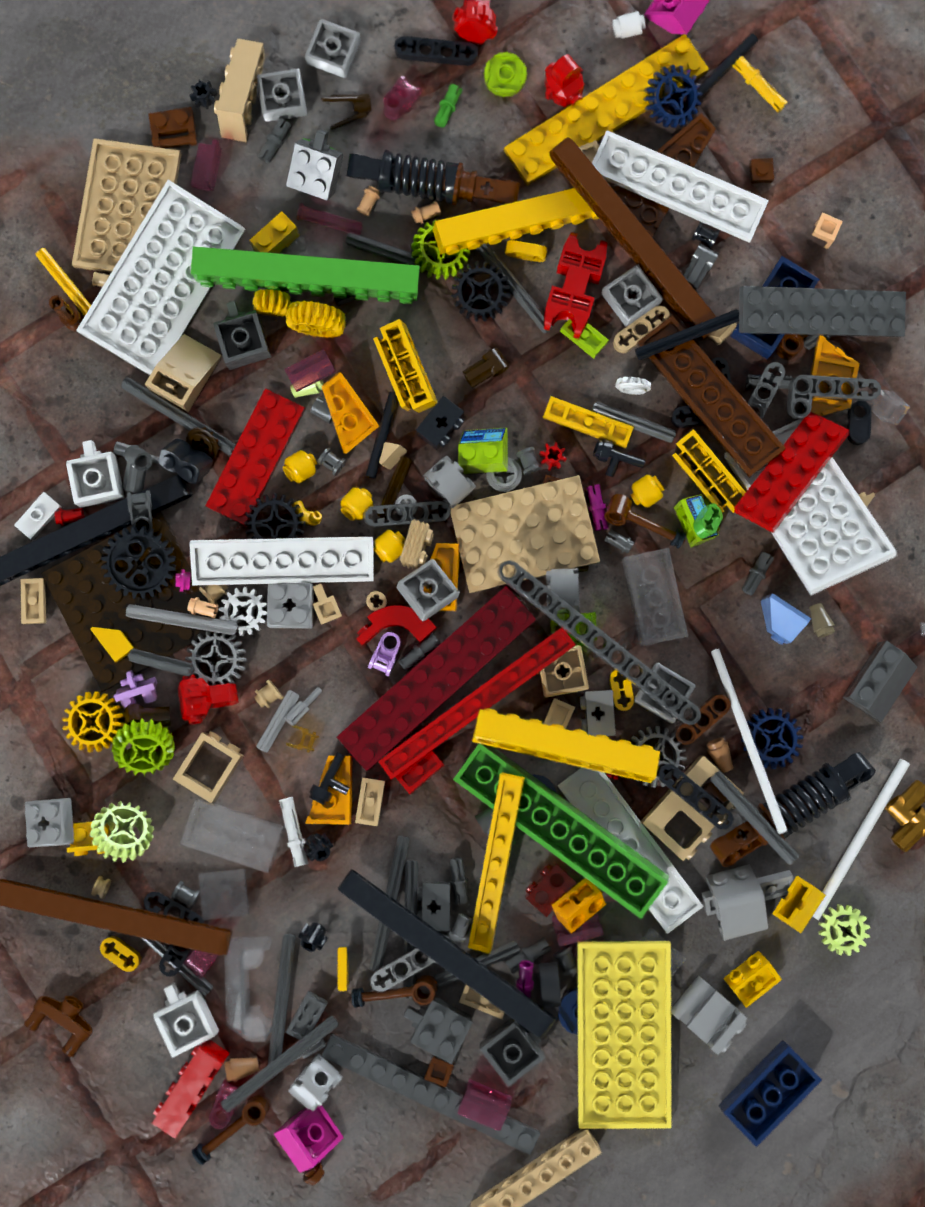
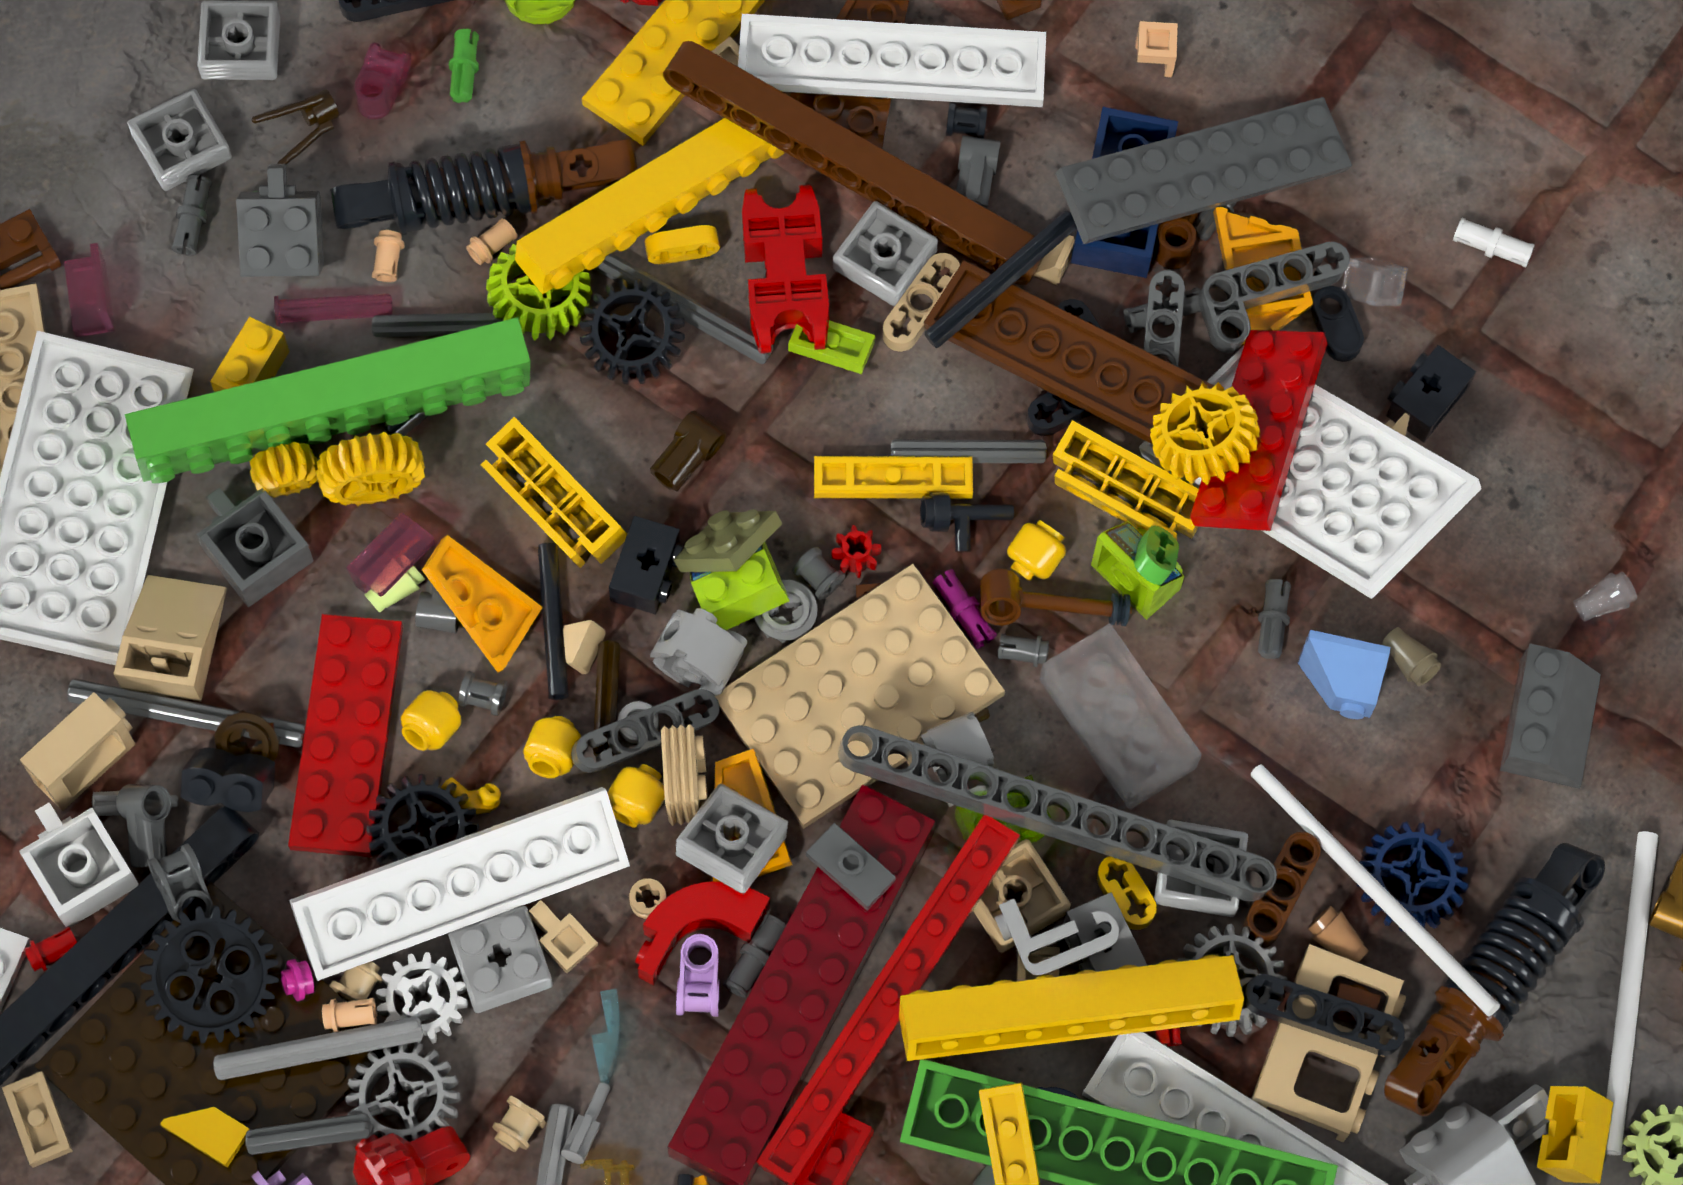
camera: 25 degrees left, 15 degrees down
(114, 418) = (79, 750): none -> tan window
(203, 94) = (44, 183): black gear -> none
(239, 89) = (105, 155): tan wedge -> none
(326, 672) = (607, 1044): none -> clear light blue slope
(482, 628) = (850, 866): none -> dark grey plate
(486, 428) = (727, 541): none -> olive plate
(570, 712) = (1013, 926): none -> light grey piece
(633, 385) = (944, 391): white gear -> none
(754, 817) = (1436, 1008): dark grey axle -> none
(777, 465) = (1182, 444): none -> yellow gear
(904, 475) = (1447, 380): none -> black brick

